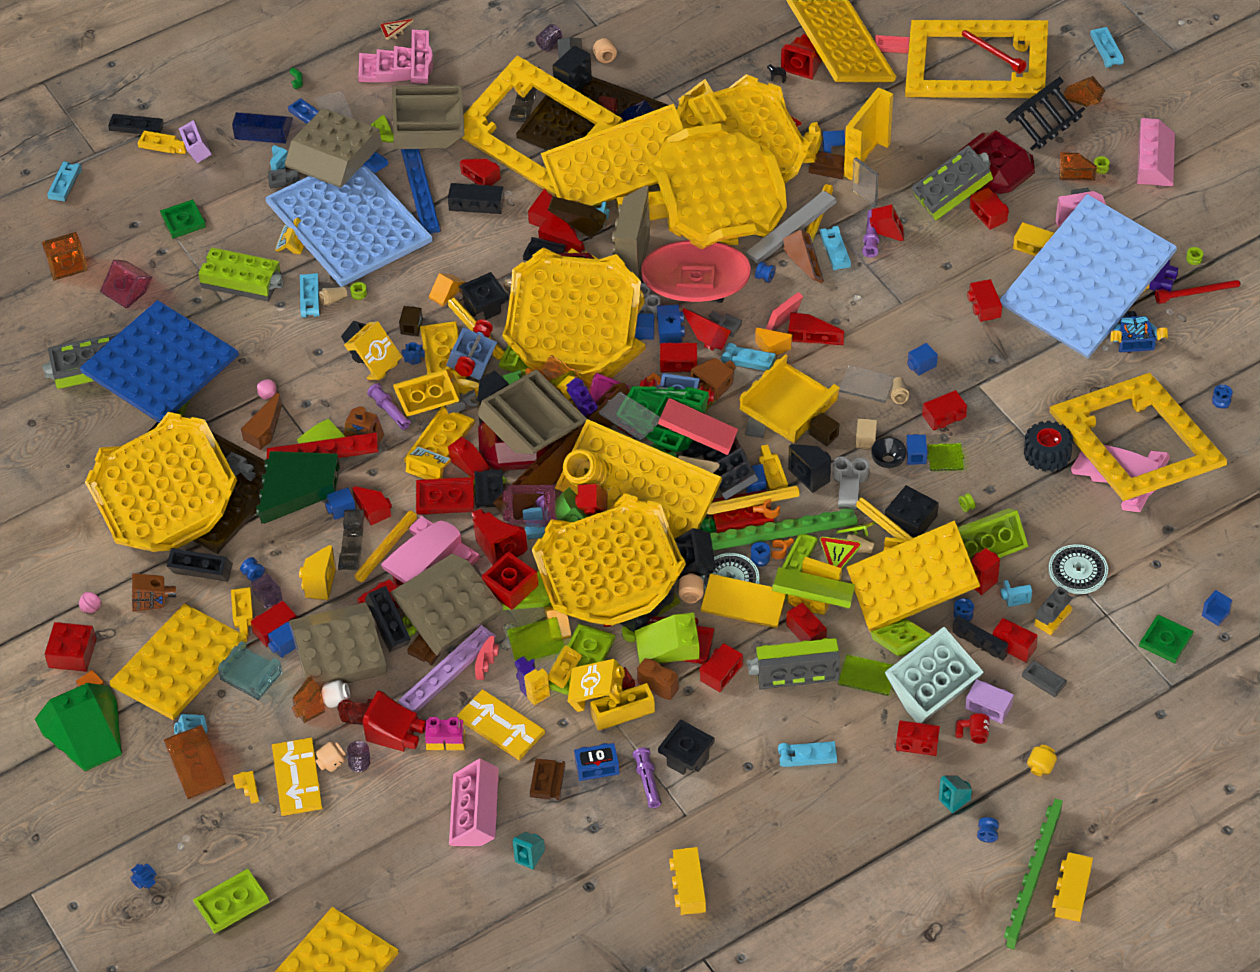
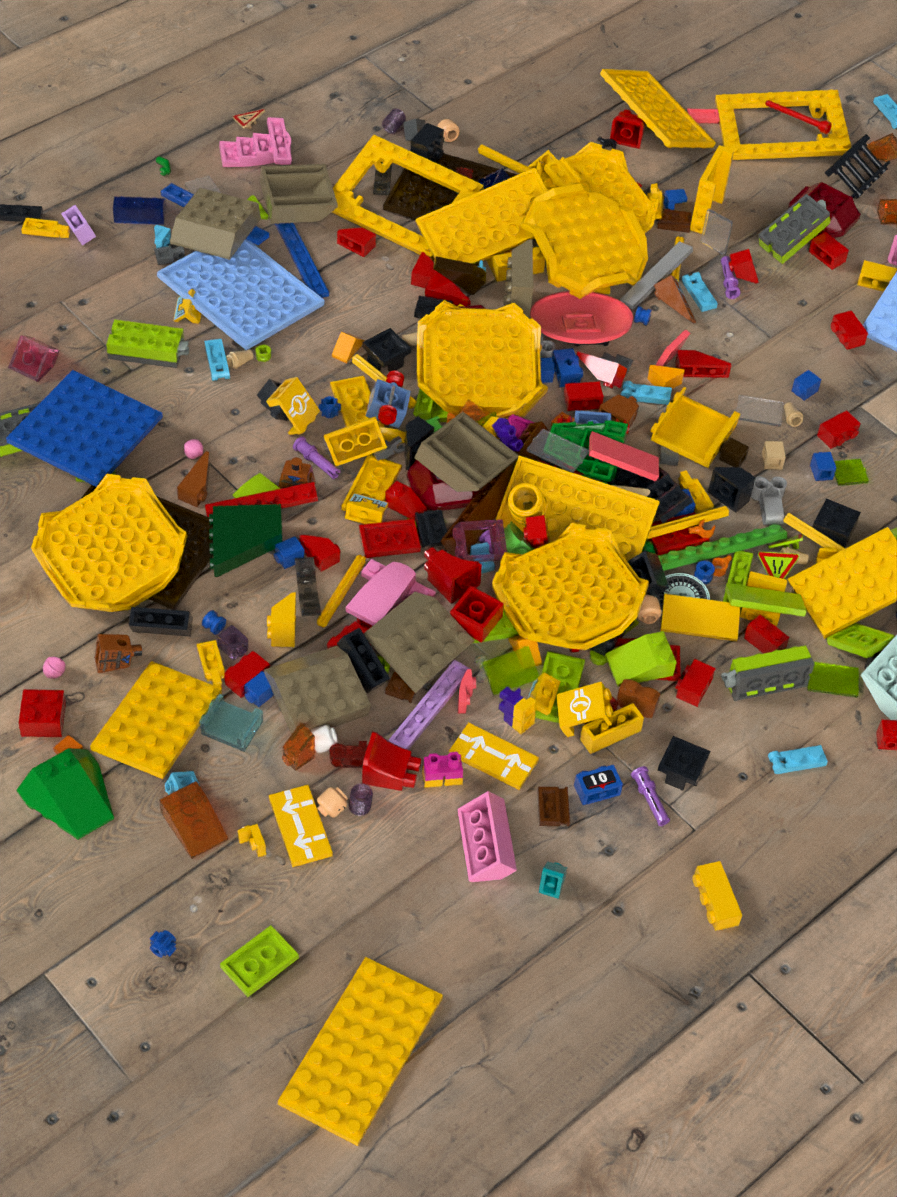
camera: 15 degrees left, 0 degrees up
(182, 219) = (78, 296): green tile -> none
(239, 465) = (184, 522): dark grey plate -> none
(410, 320) = (320, 377): dark brown brick -> none
(476, 198) = (358, 264): black brick -> none
(657, 86) = (502, 159): none -> yellow axle
(888, 447) = (800, 466): black piece -> none
(966, 502) = (881, 511): lime bush -> none

